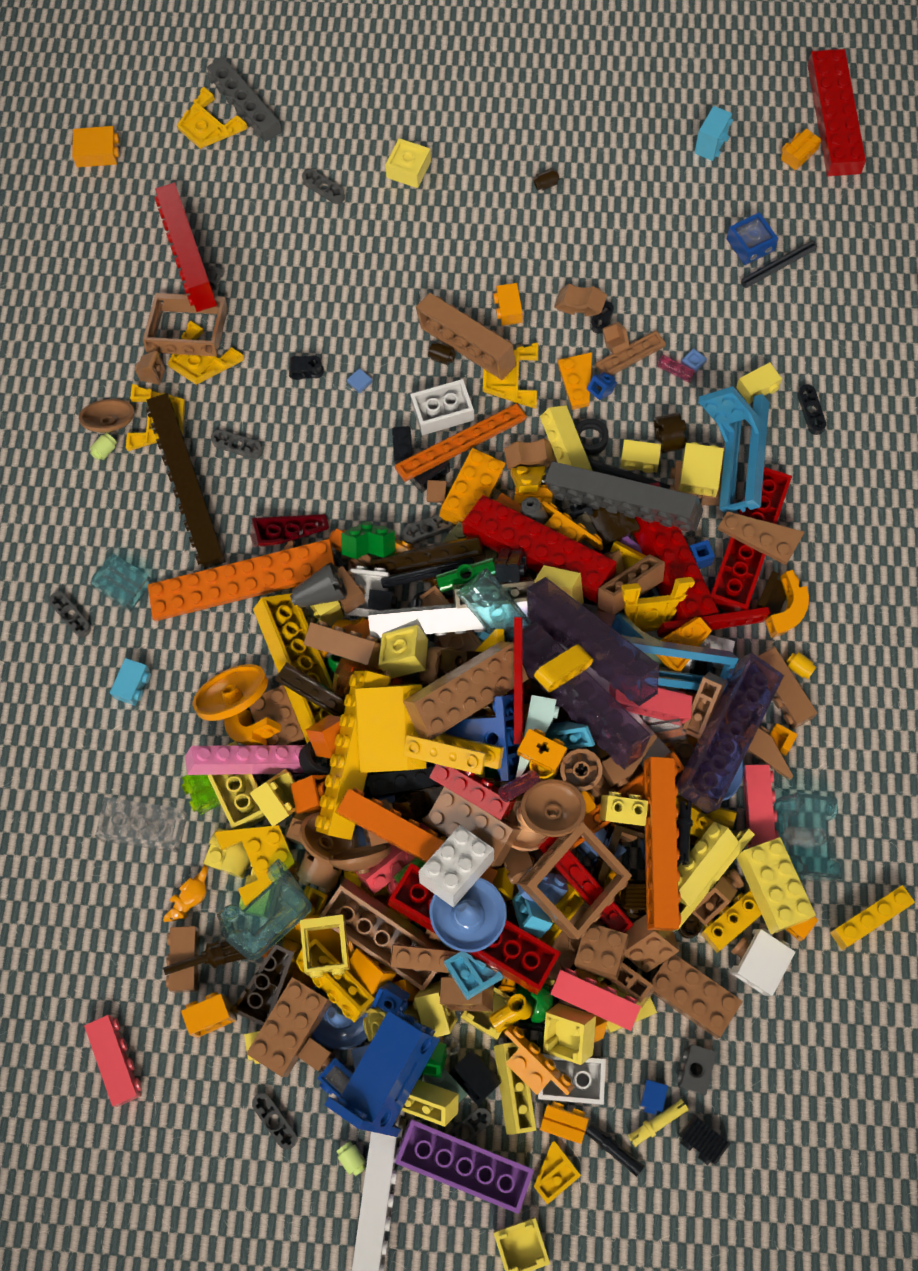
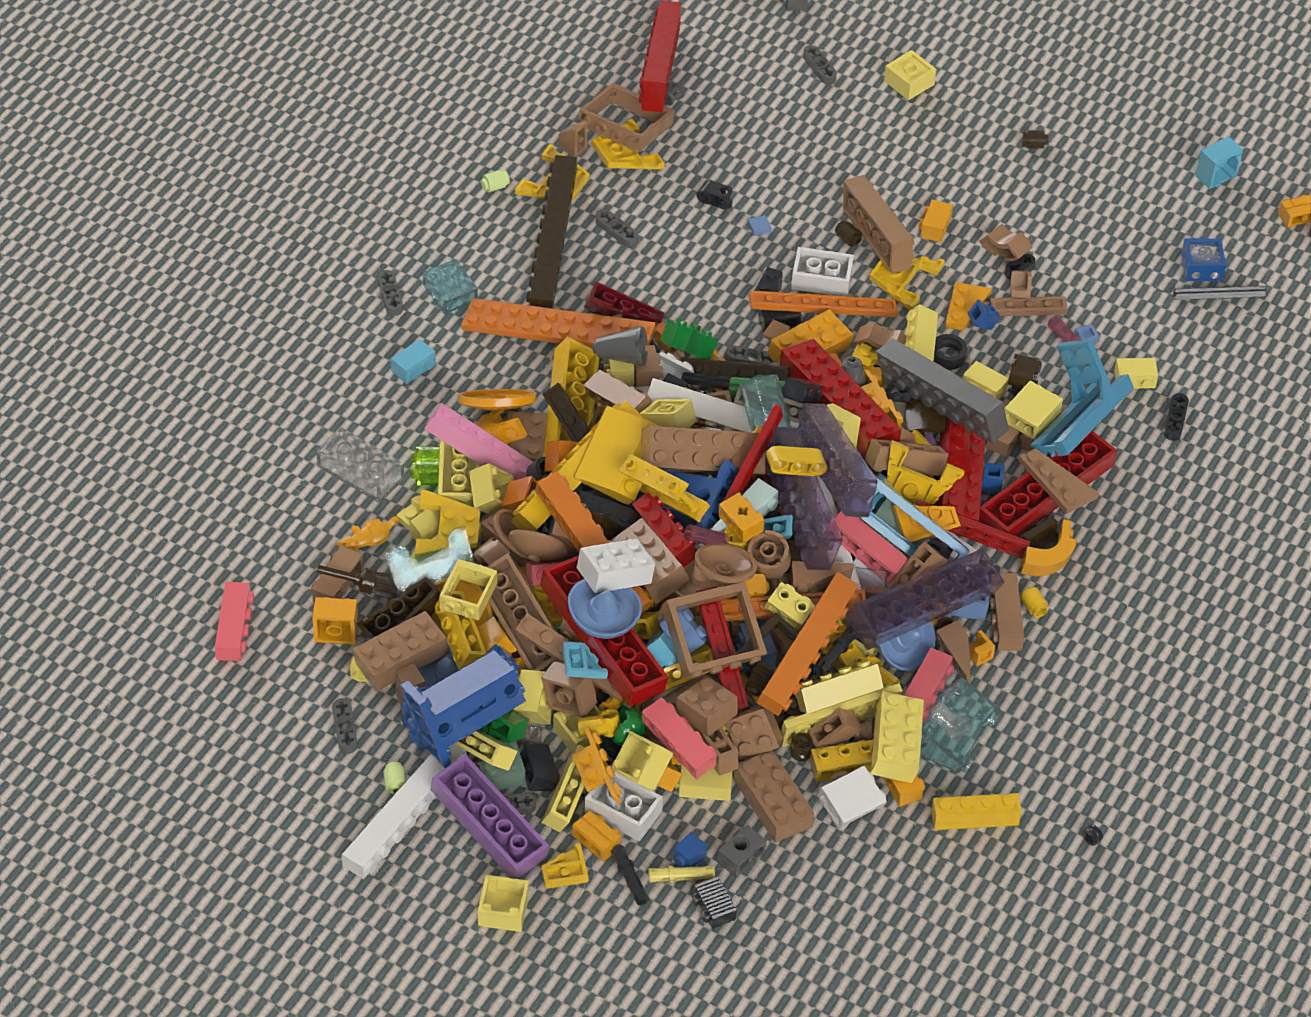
camera: 20 degrees right, 20 degrees down
(106, 415) = (512, 158): medium nougat dish -> none

